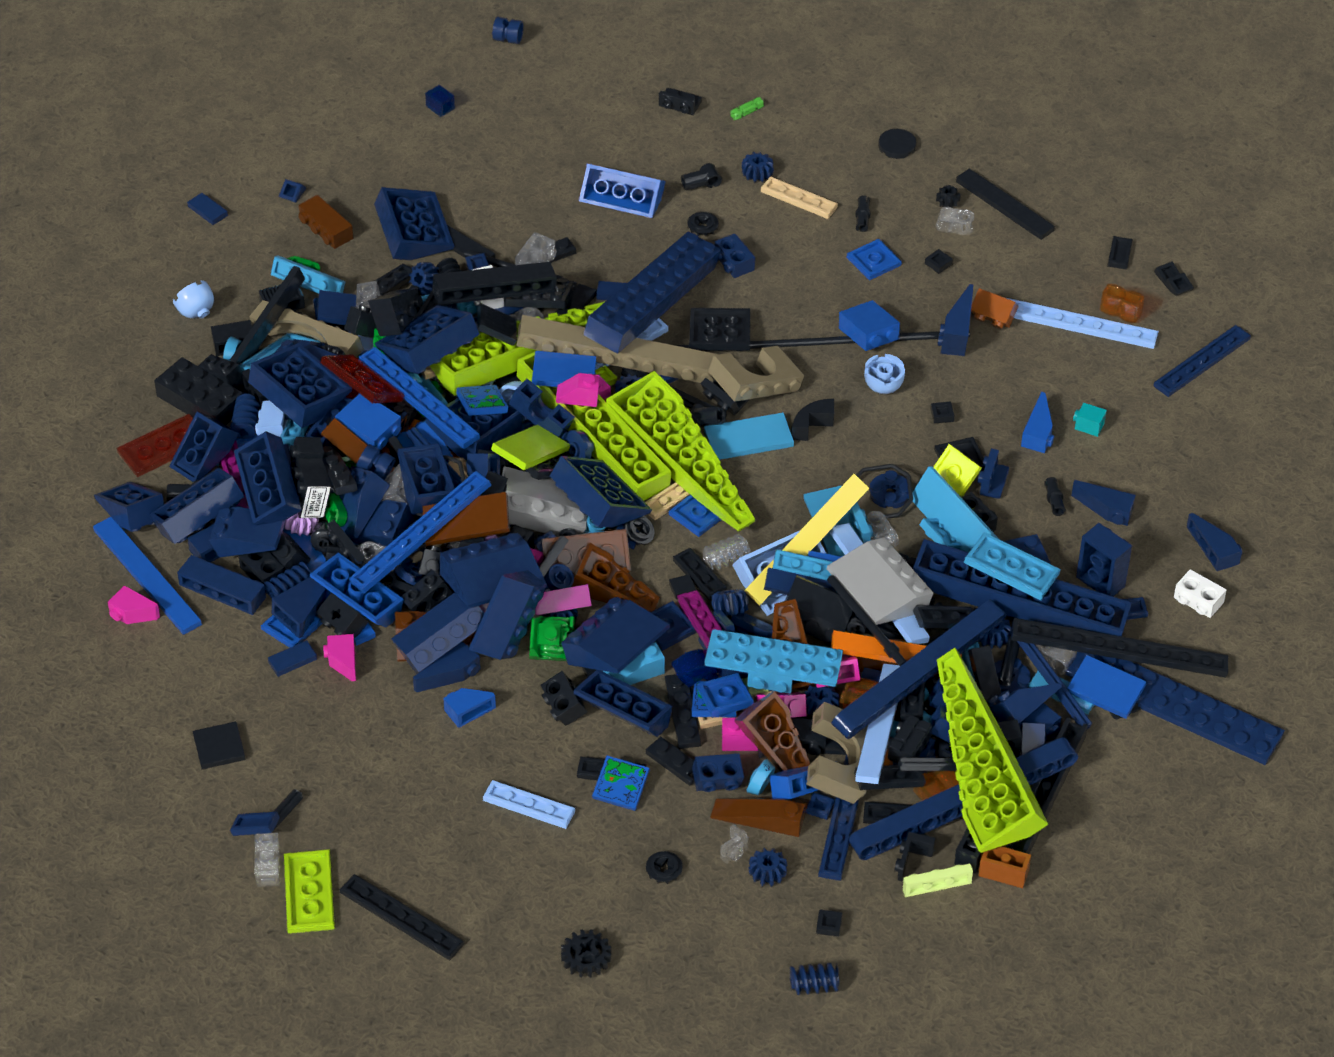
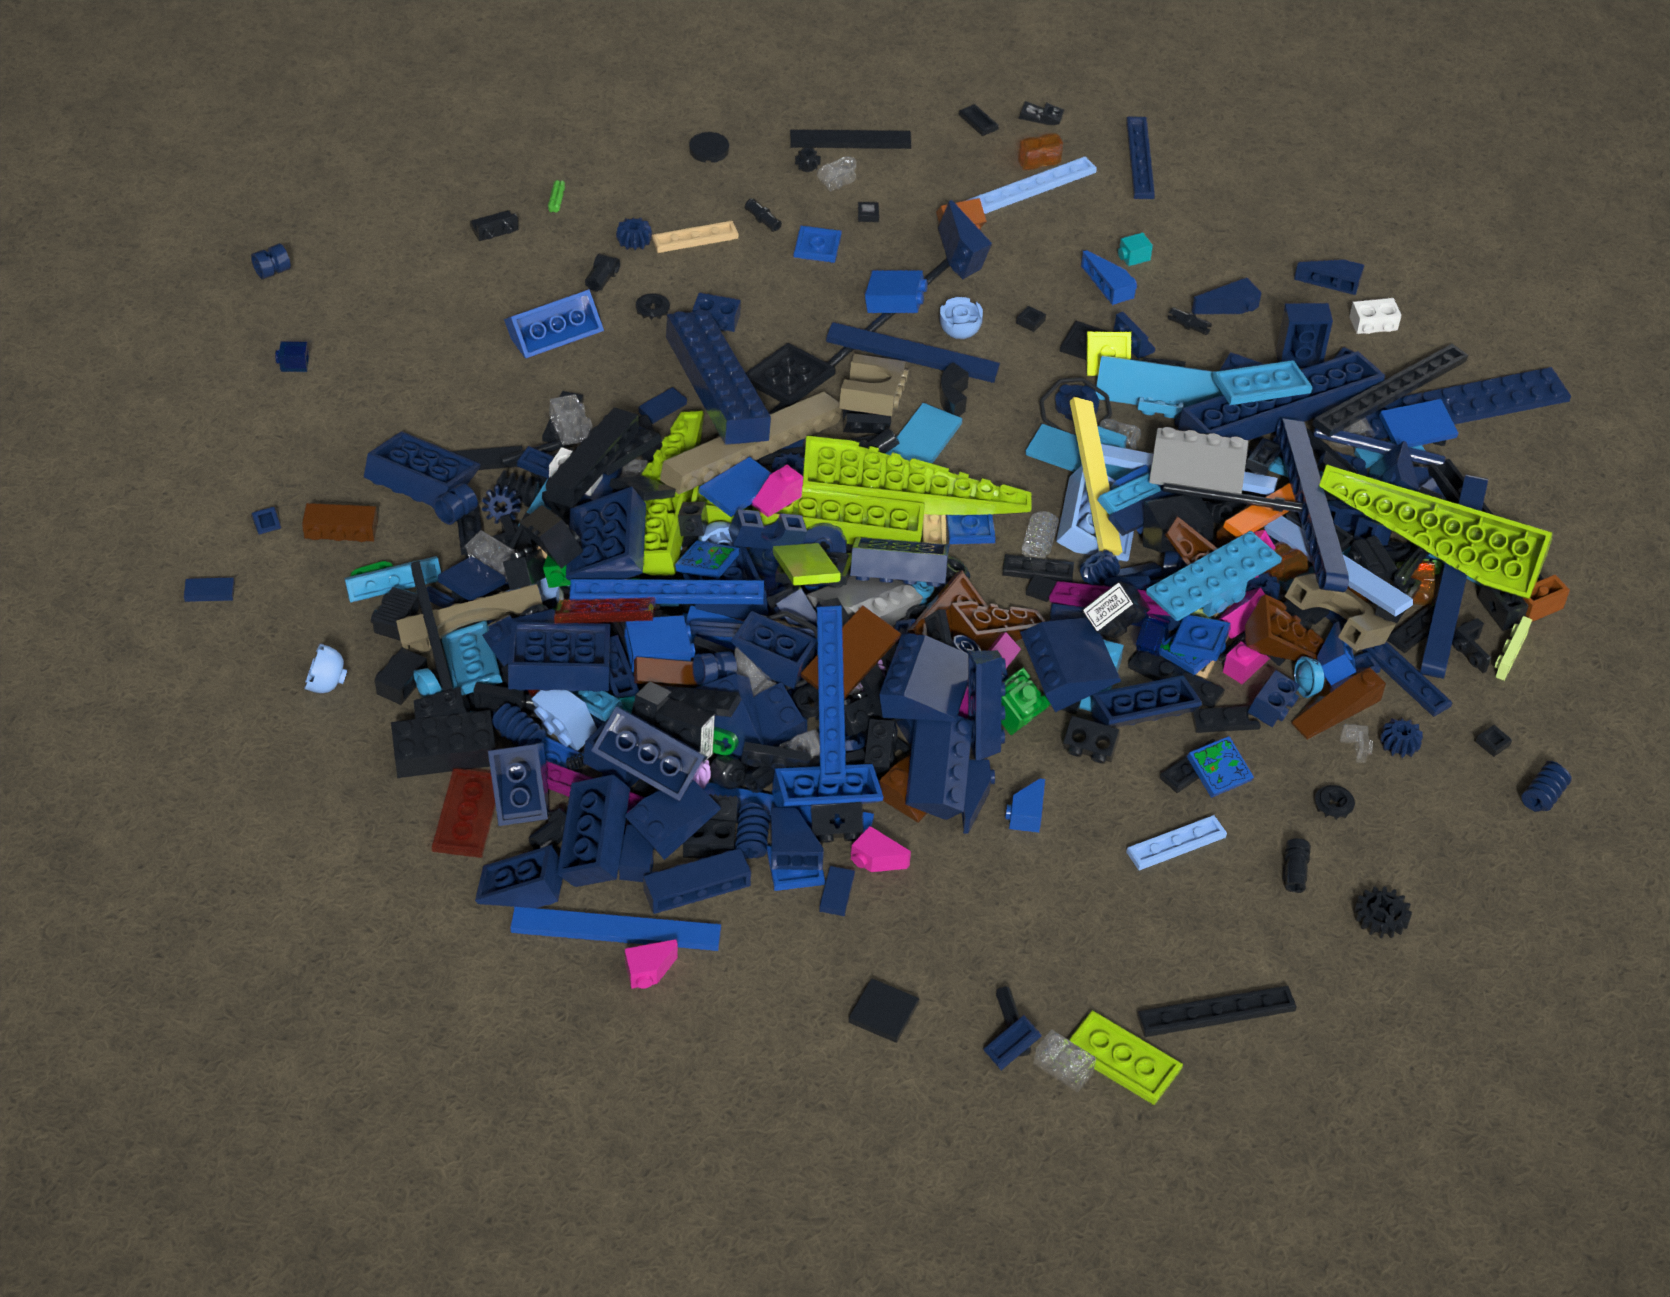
camera: 50 degrees left, 0 degrees up
(395, 257) = (455, 503): none -> dark blue wheel
(507, 368) = (693, 518): none -> black brick
(577, 880) = (1296, 869): none -> black axle
(681, 628) = (1116, 610): none -> brick
(826, 376) = (911, 351): none -> dark blue tile

